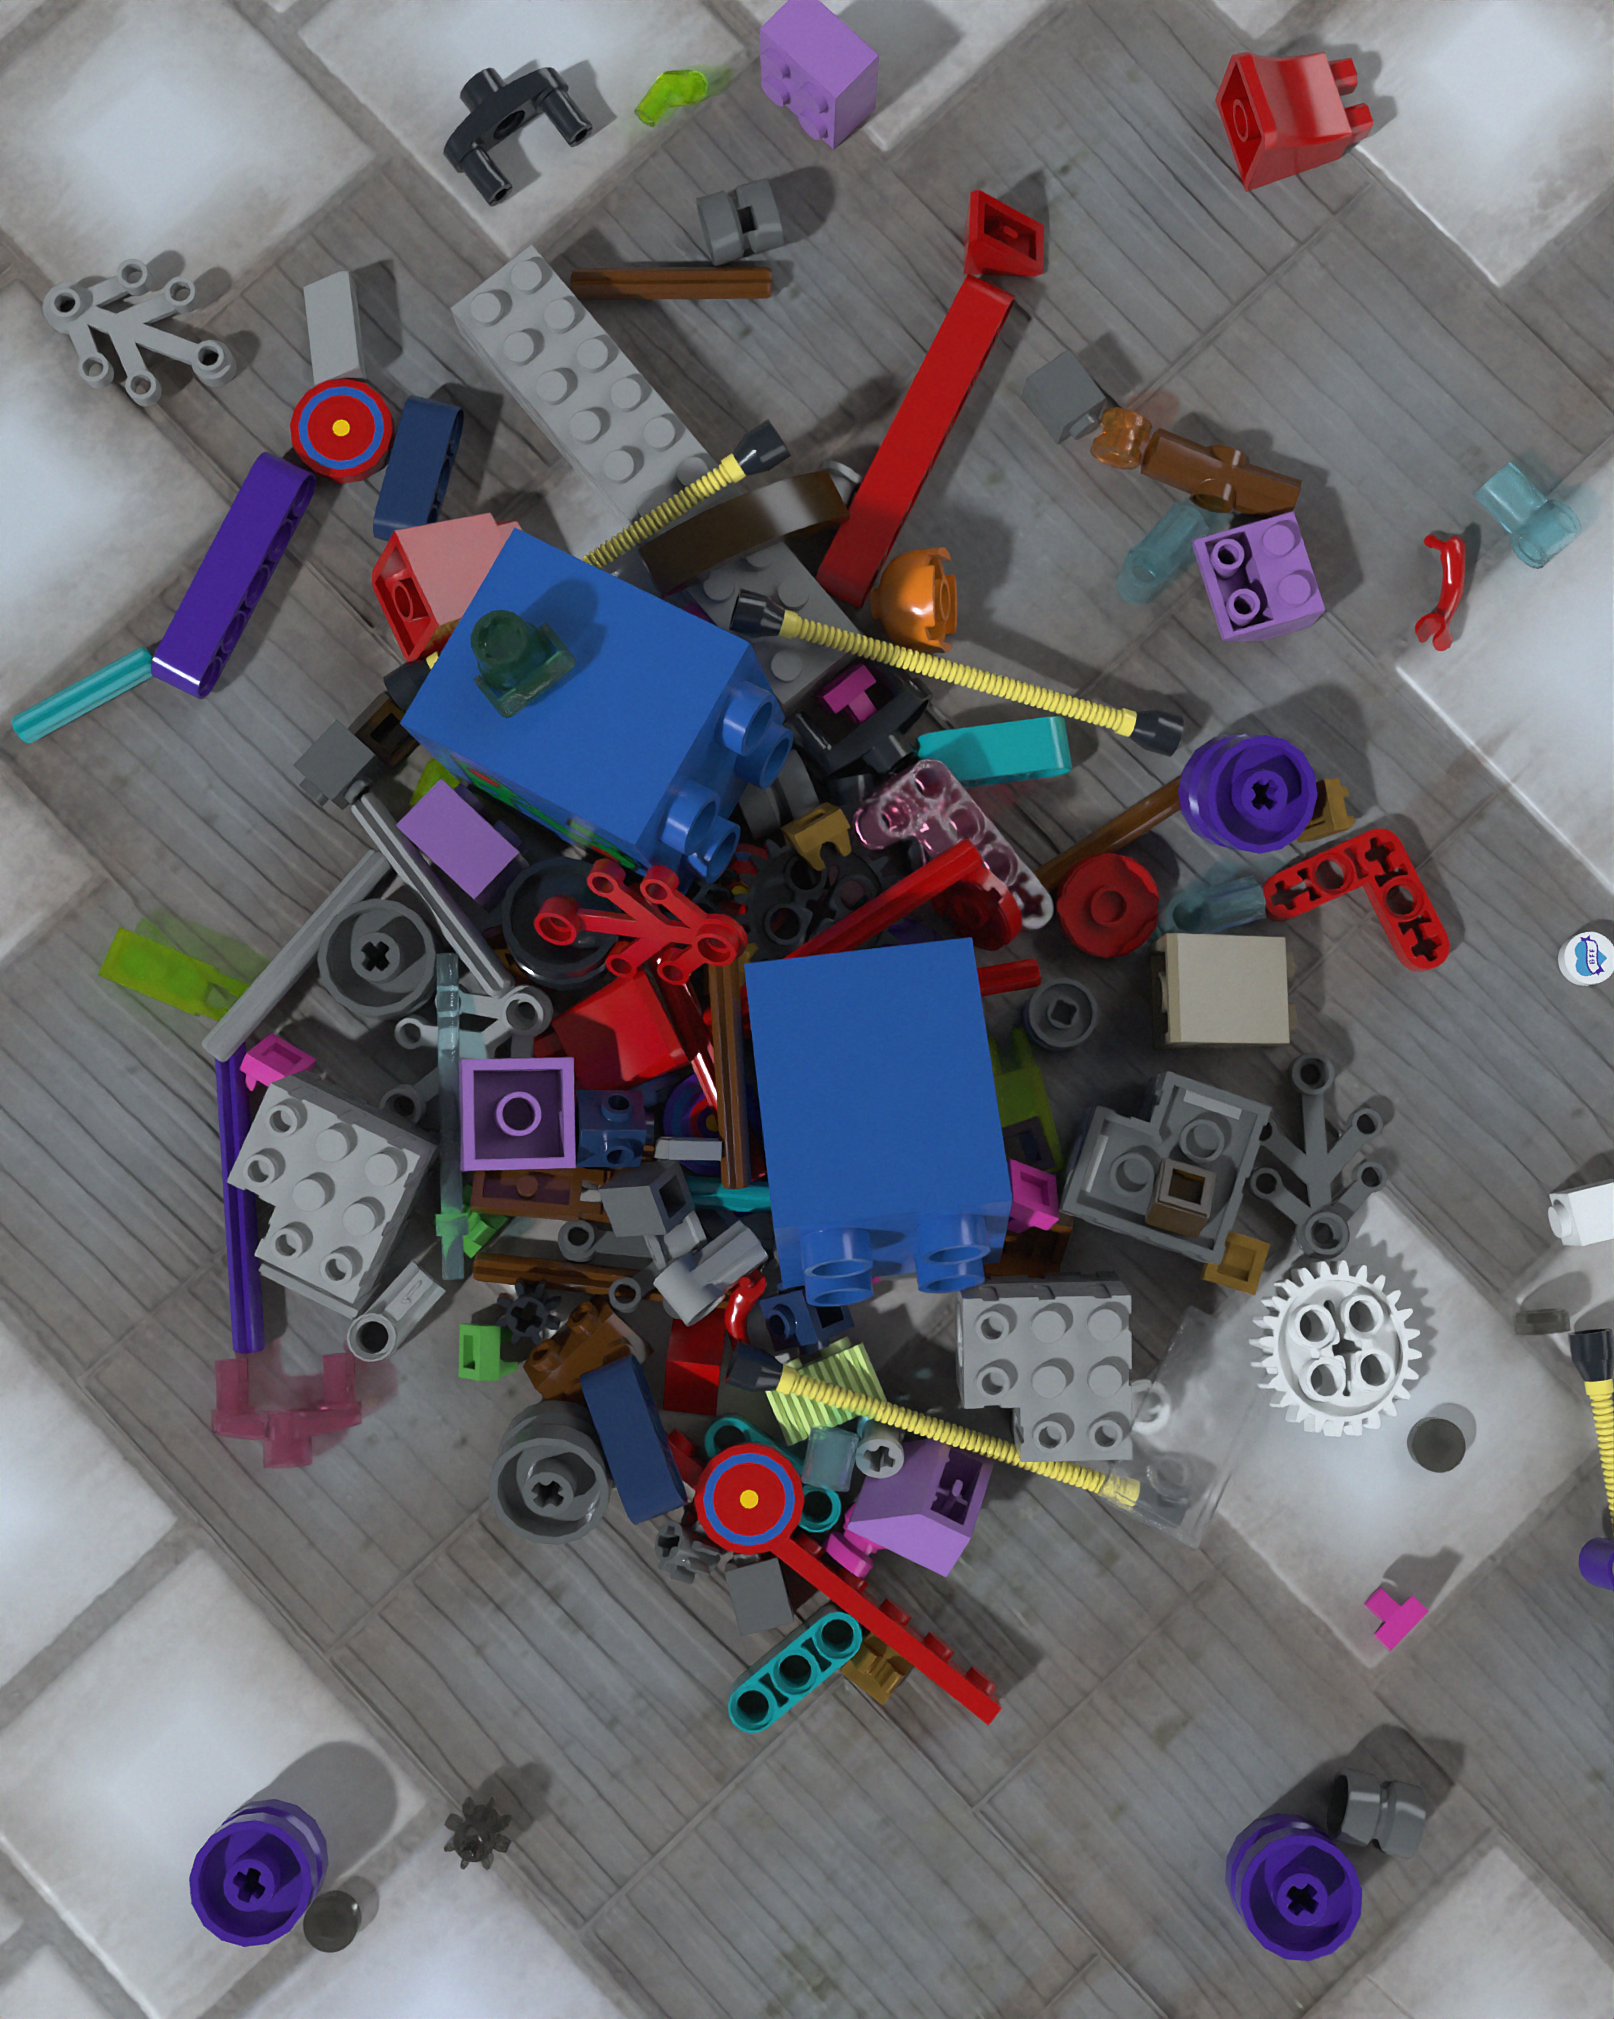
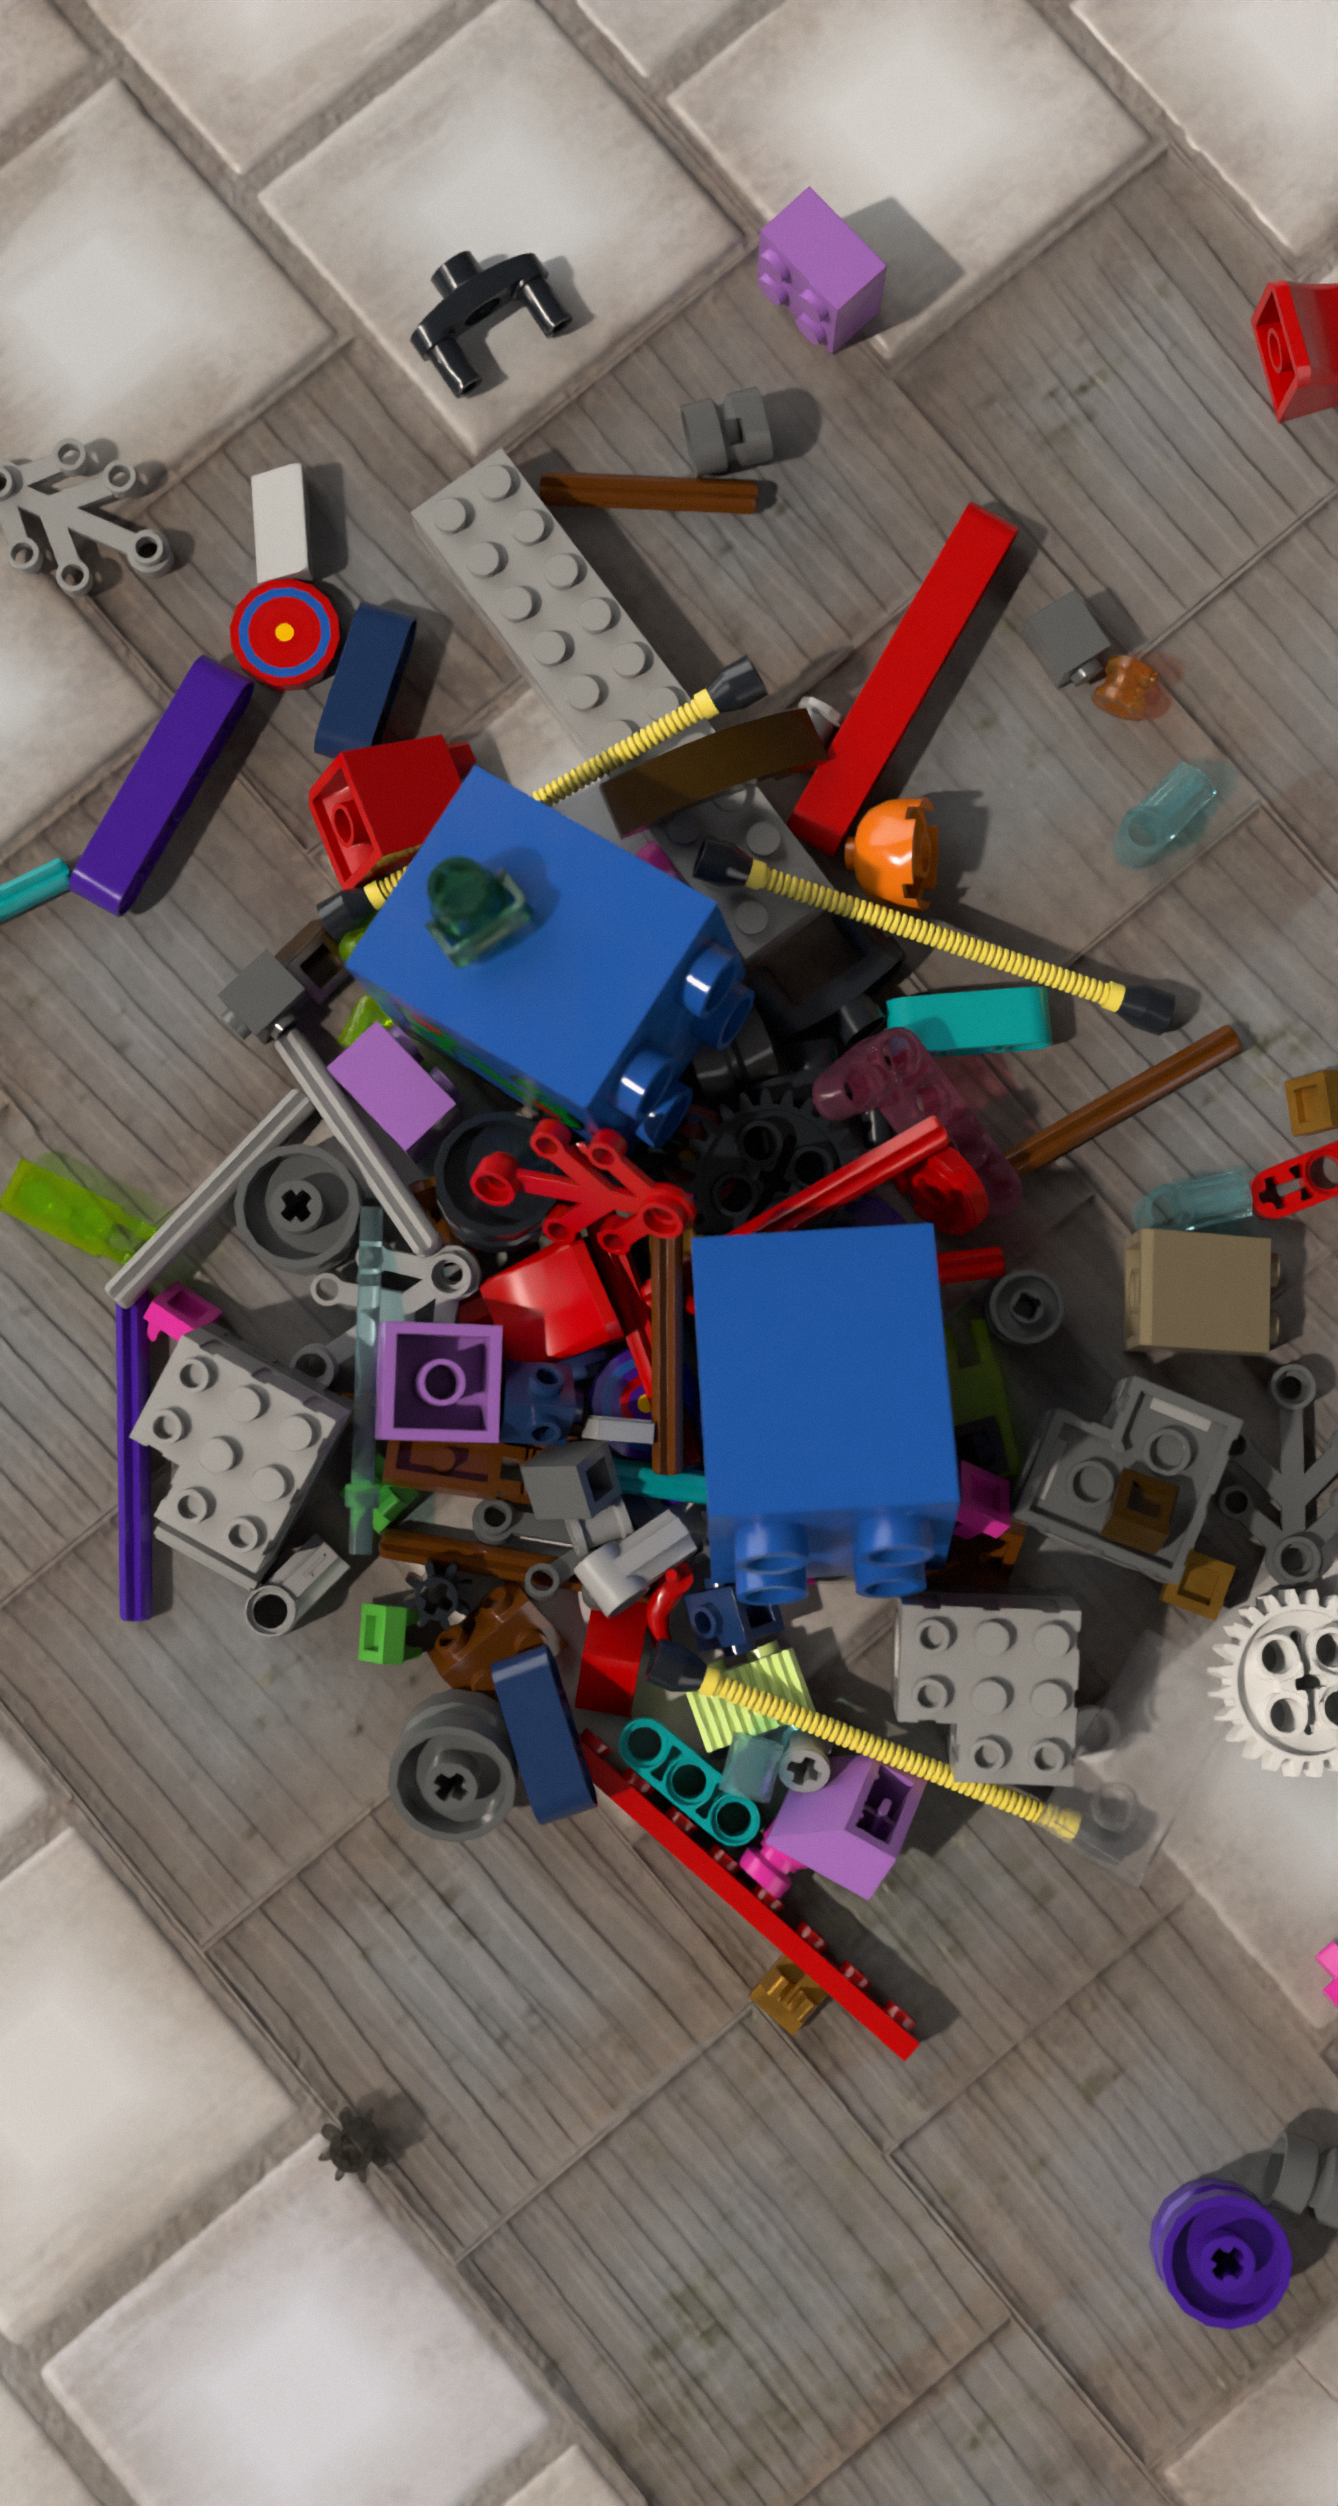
camera: 10 degrees right, 0 degrees up
(258, 1873) = (96, 2196): dark purple wheel -> none
(285, 1432) = (173, 1708): clear pink connector -> none
(332, 1921) = (194, 2230): clear smoke tile -> none
(671, 90) = (659, 282): clear neon green arm -> none
(686, 1549) = (594, 1855): dark grey gear -> none
(749, 1498) = (663, 1805): tile -> none
(758, 1592) = (666, 1905): dark grey brick -> none
(784, 1691) = (687, 2014): teal beam -> none
(815, 828) = (773, 1095): pearl gold tile -> none
(848, 694) = (815, 949): dark pink tile -> none
(1001, 239) = (1008, 464): red slope -> none
(1107, 905) = (1081, 1193): red tile -> none
(1218, 477) = (1230, 737): reddish brown piece -> none
(1248, 792) = (1239, 1080): dark purple wheel -> none
(1259, 579) = (1265, 850): medium lavender slope -> none

